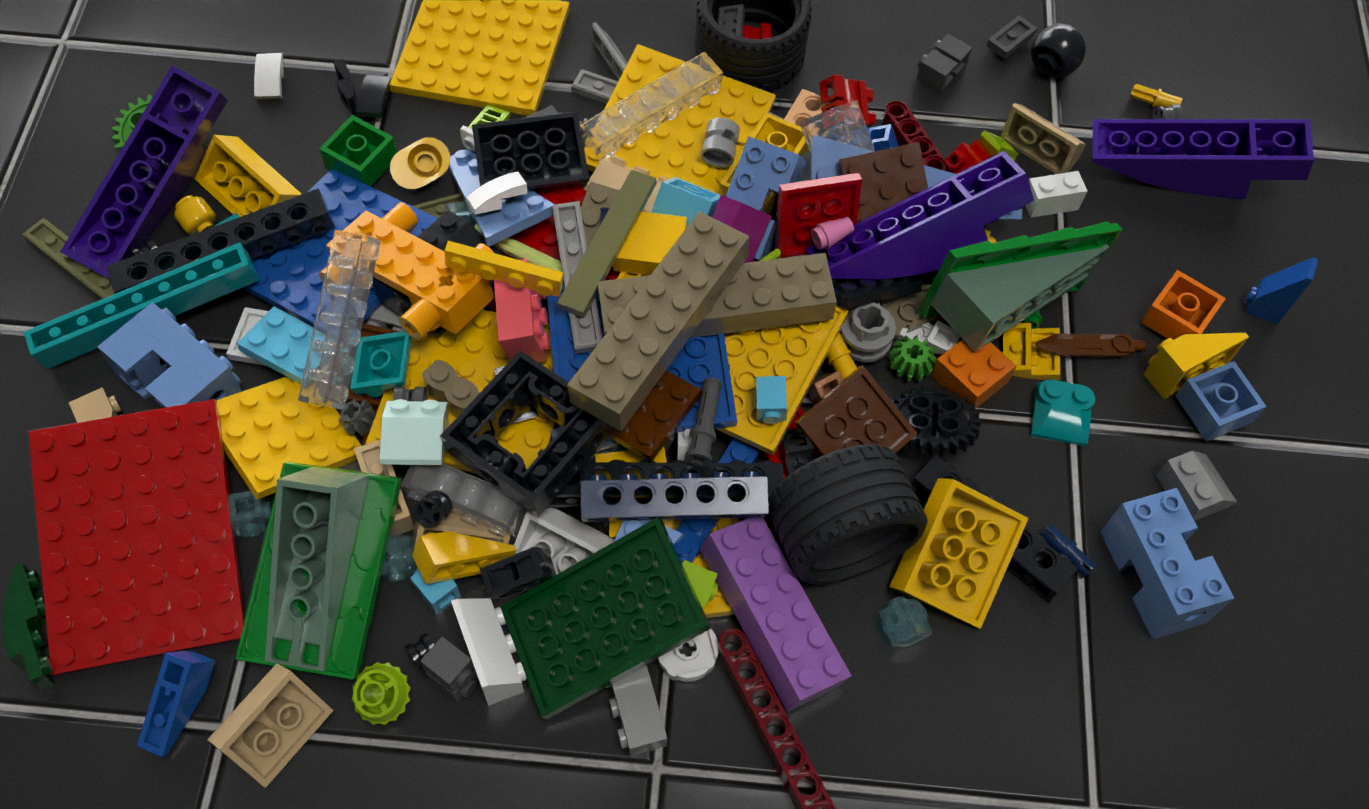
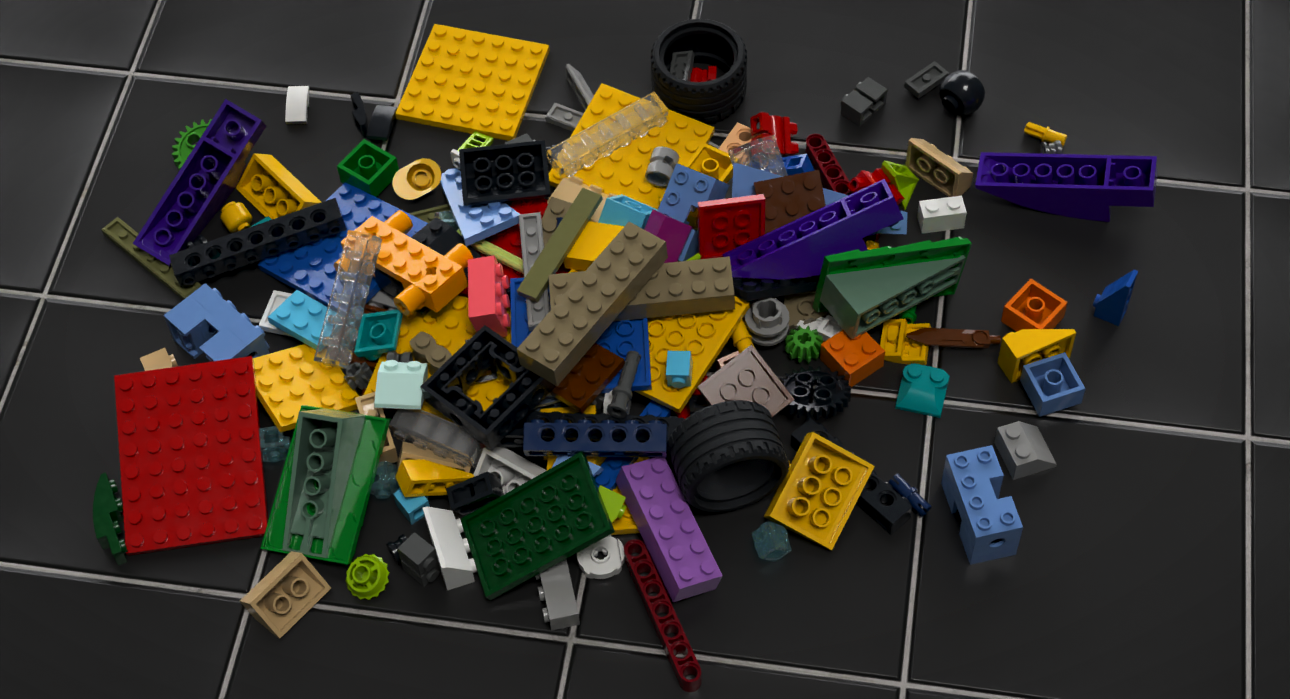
camera: 10 degrees right, 5 degrees down
(175, 290) = (222, 274): teal brick -> none
(175, 697) = (216, 572): blue slope -> none
(429, 516) = (411, 447): black wheel -> none
(489, 195) = (469, 206): white slope -> none
(504, 269) = (475, 262): yellow plate -> none
(831, 232) = (741, 241): bright pink cone -> none

